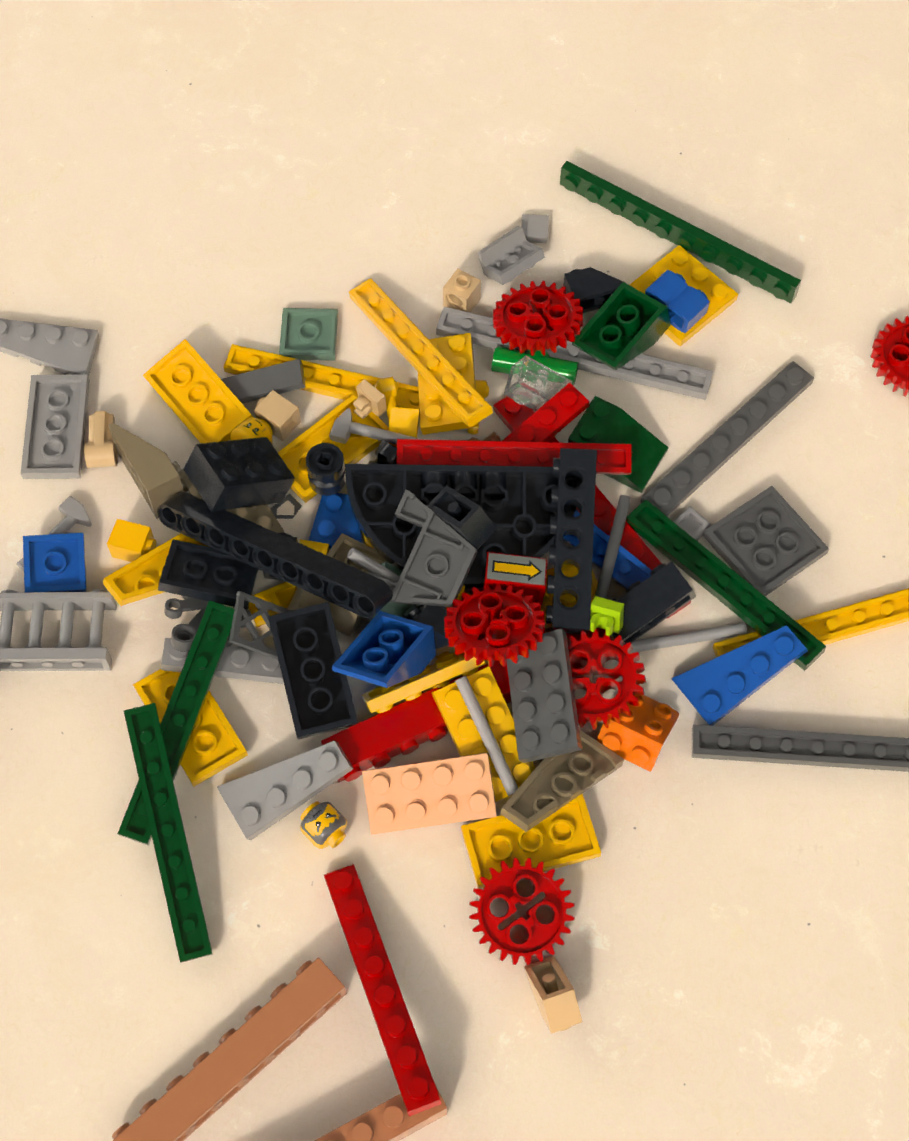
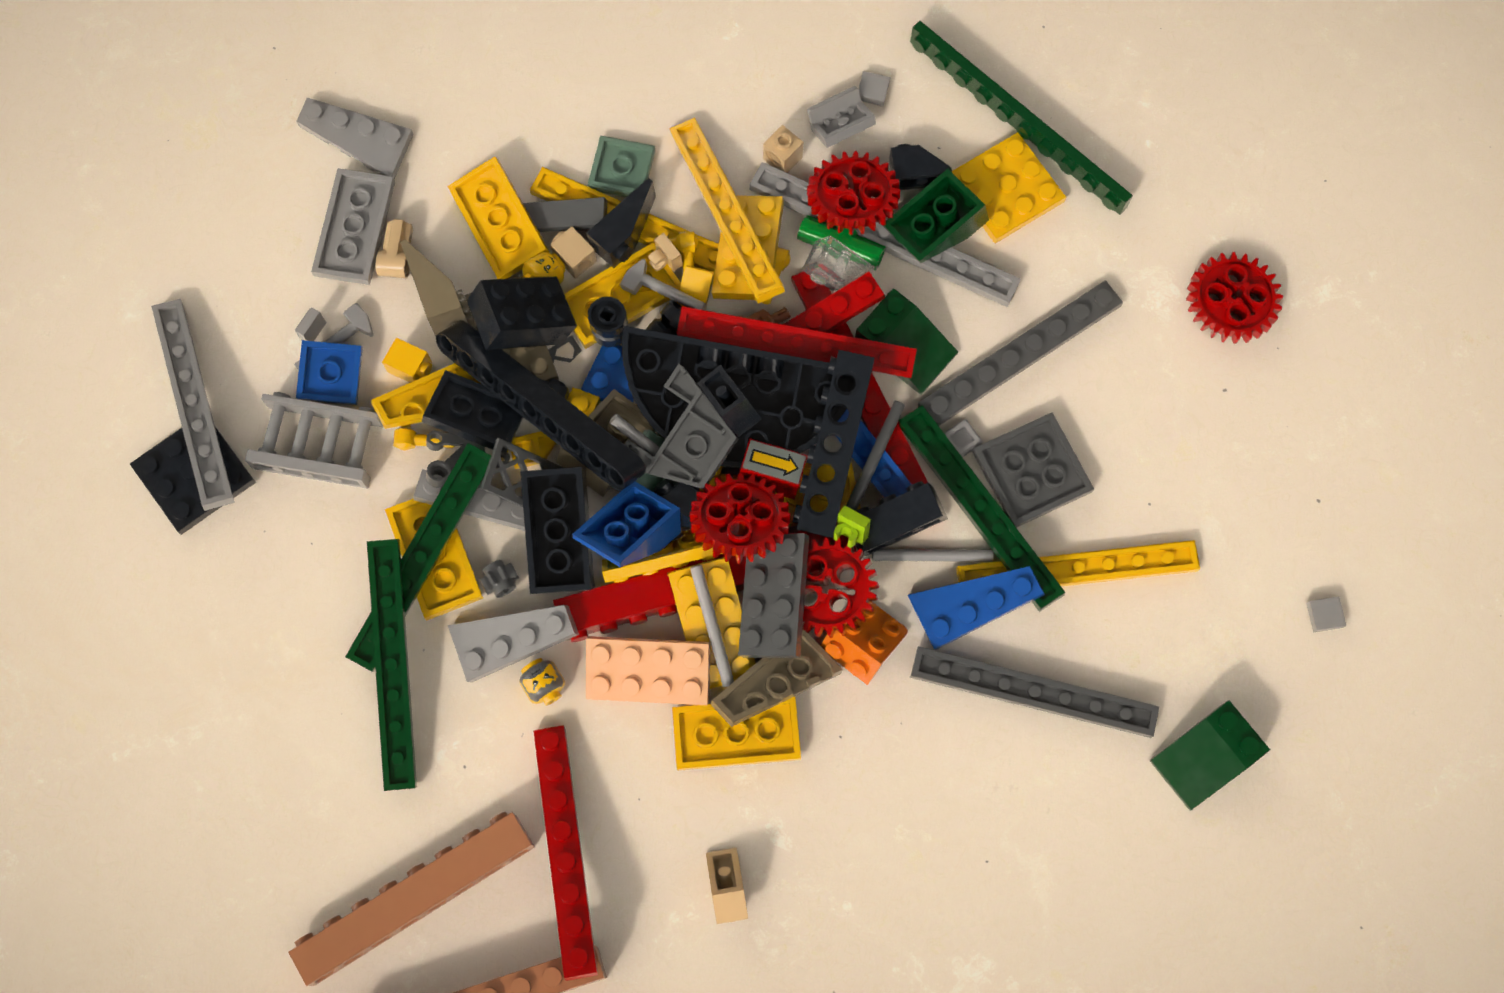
camera: 10 degrees right, 10 degrees up
(28, 522) = (310, 325): none -> light grey tile
(143, 614) = (406, 438): none -> yellow piece
(261, 731) = (499, 578): none -> dark grey gear
(320, 386) = (619, 231): none -> black slope
(539, 935) = (726, 826): red gear -> none
(683, 302) = (1002, 198): blue brick -> none

